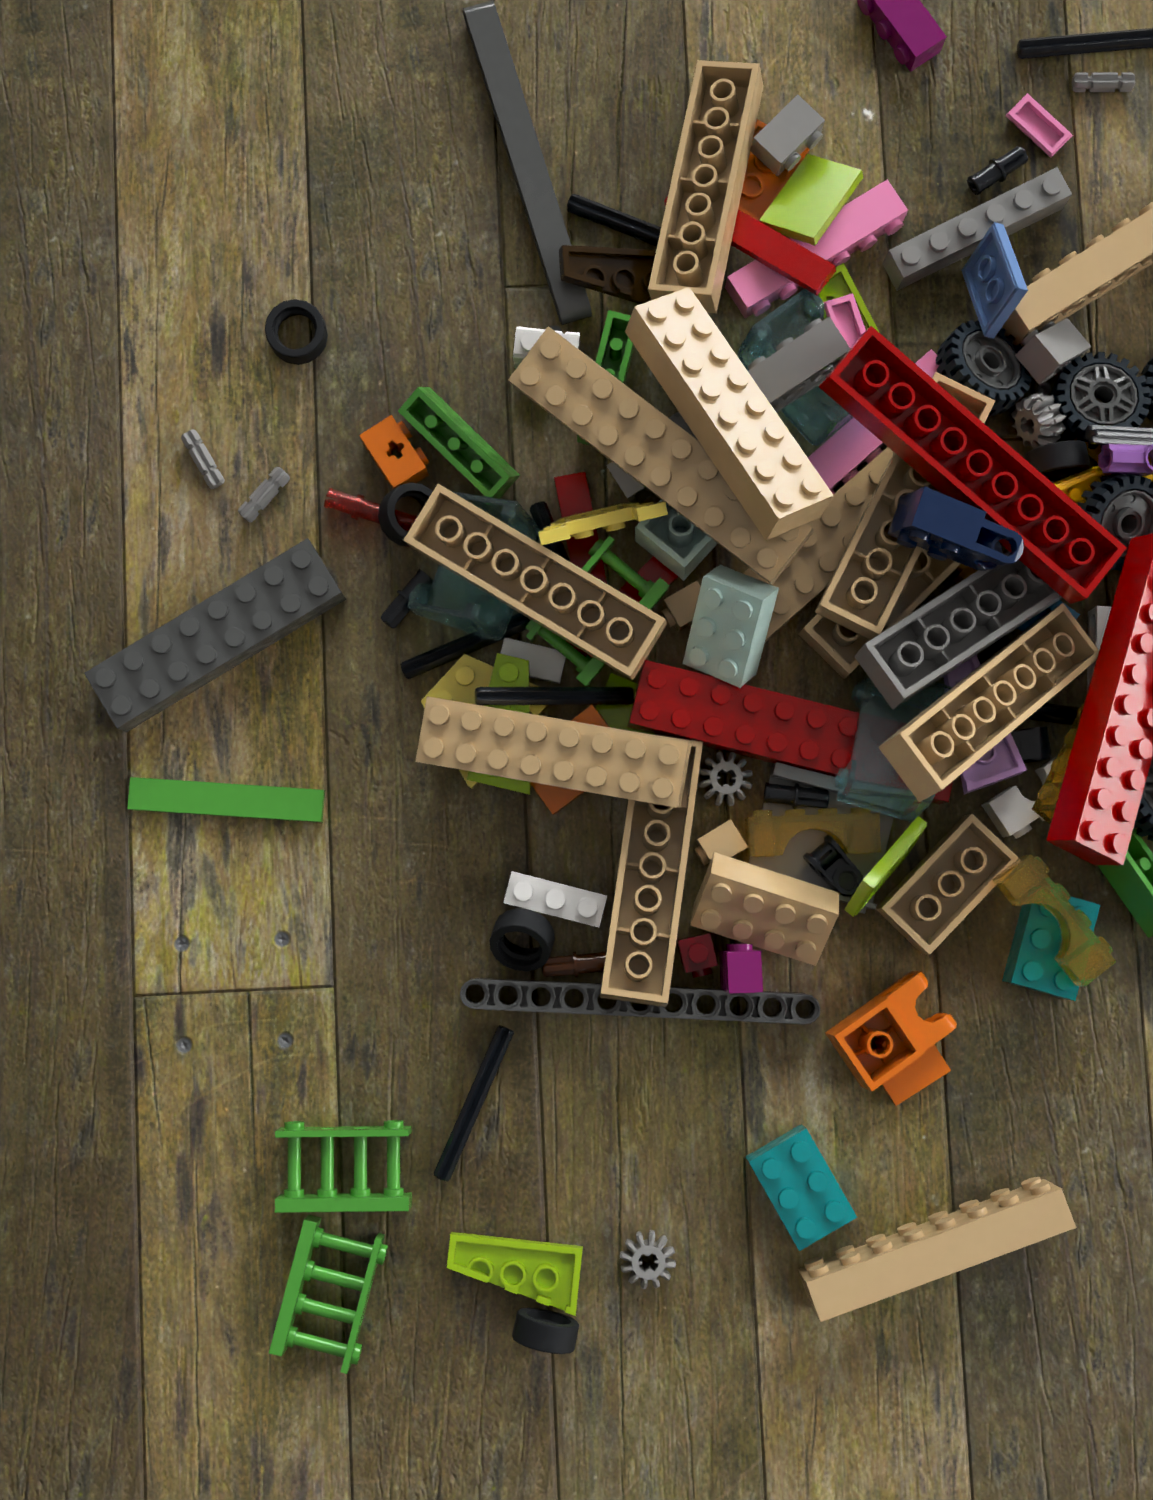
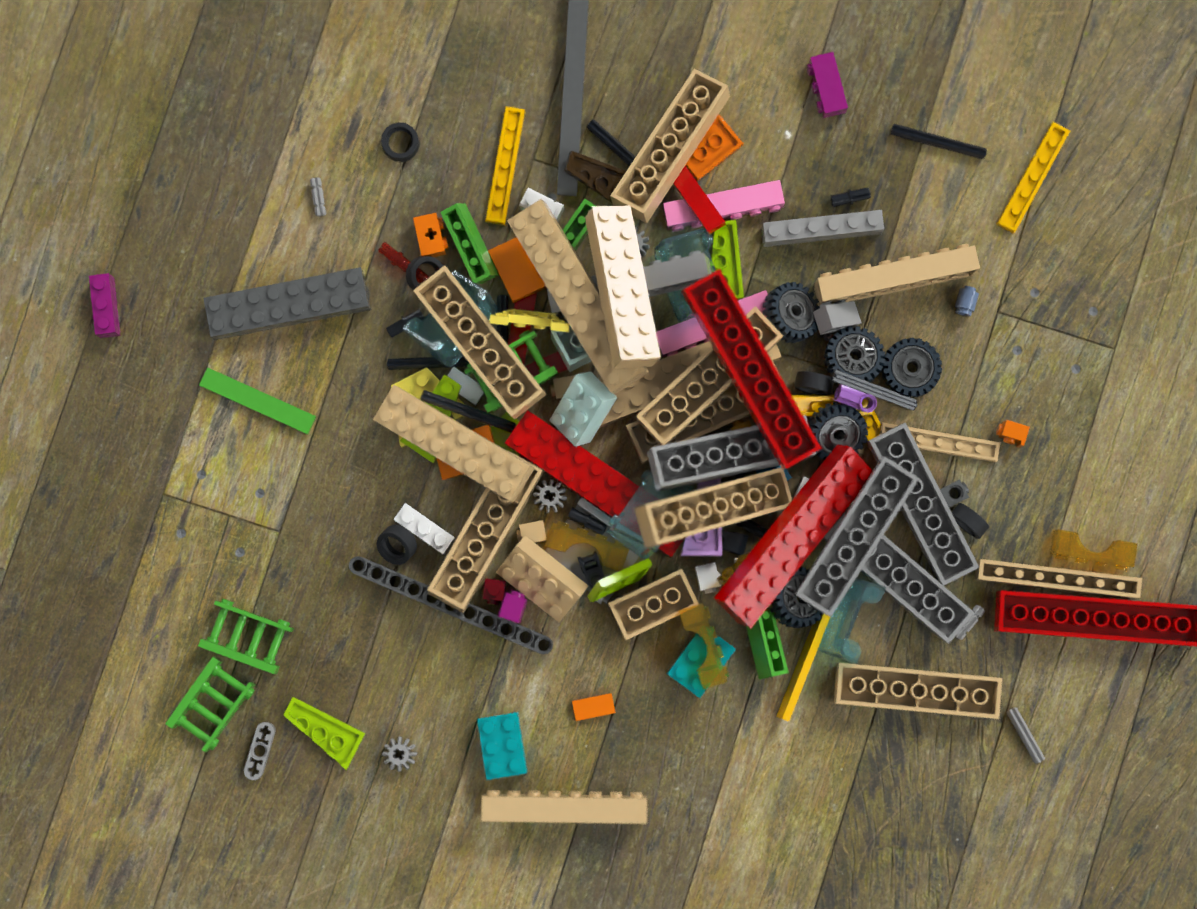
camera: 20 degrees right, 0 degrees up
(264, 494) = (345, 230): light grey axle -> none
(441, 1360) = (261, 767): none -> light grey beam
(467, 311) = (505, 165): none -> yellow tile
(473, 1103) = (334, 628): black axle -> none
(545, 1330) = (326, 770): black tyre -> none
(546, 454) = (516, 270): none -> orange tile
(574, 964) = (419, 570): reddish brown axle -> none
(788, 136) = (731, 133): light grey brick -> none
(811, 199) = (730, 175): lime tile -> none
(846, 317) = (722, 257): bright pink tile -> none
(899, 1032) = (593, 675): orange brick -> none
(952, 530) = (724, 402): dark blue brick -> none
(994, 280) = (815, 263): medium blue tile -> none
(1038, 420) = (813, 355): light grey gear -> none
(1039, 125) = (885, 179): bright pink tile -> none
(1103, 82) = (934, 167): light grey axle -> none

